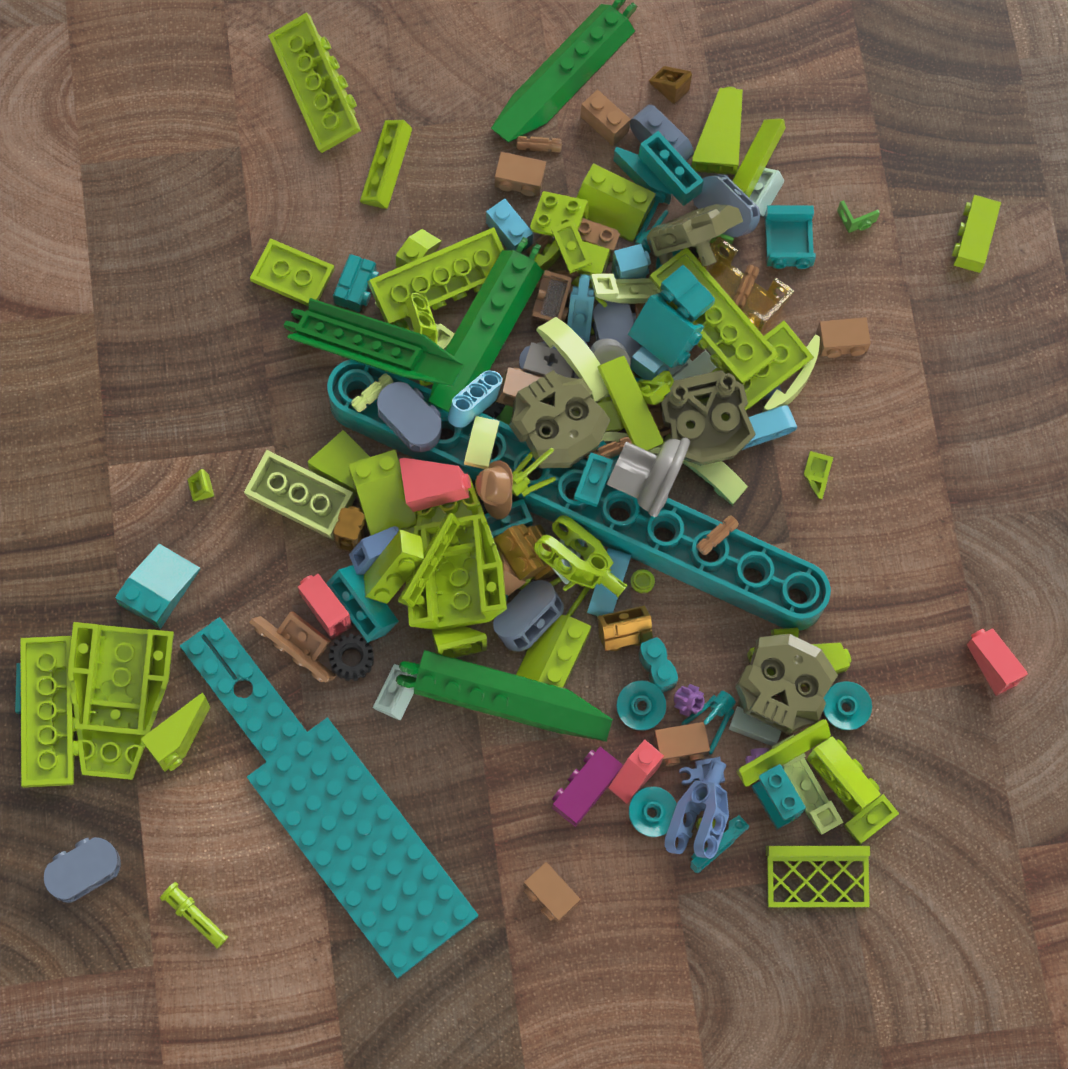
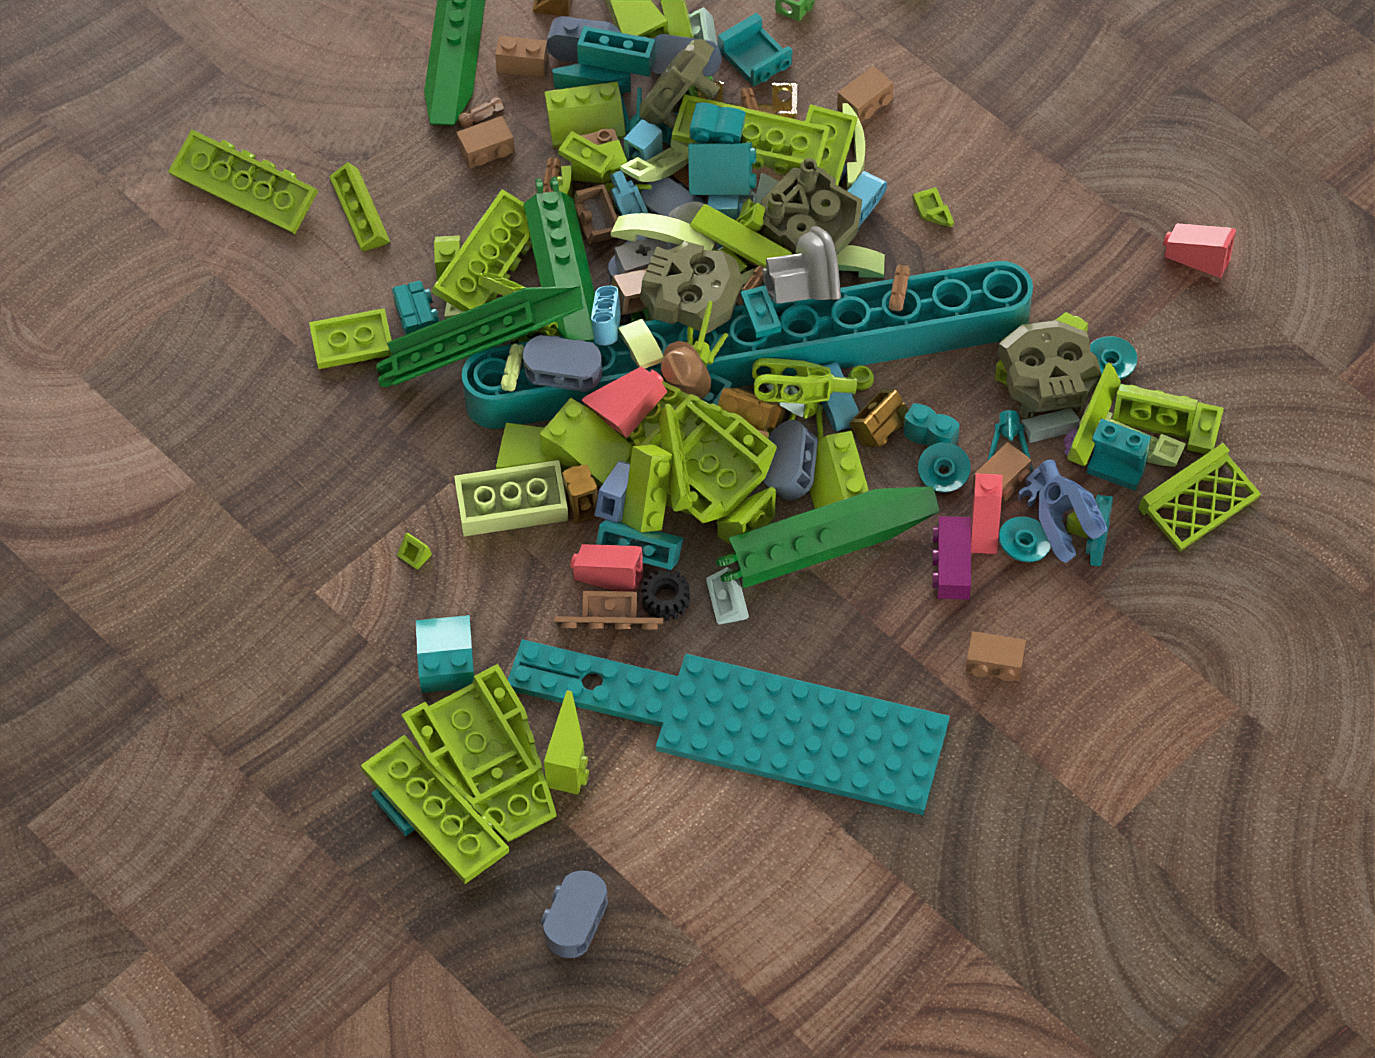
camera: 30 degrees left, 15 degrees down
(185, 907) = (741, 886): lime pin -> none
(508, 225) = (512, 180): medium azure brick -> none
(558, 209) = (543, 145): lime bracket -> none
(689, 700) = (980, 437): medium lavender gear -> none

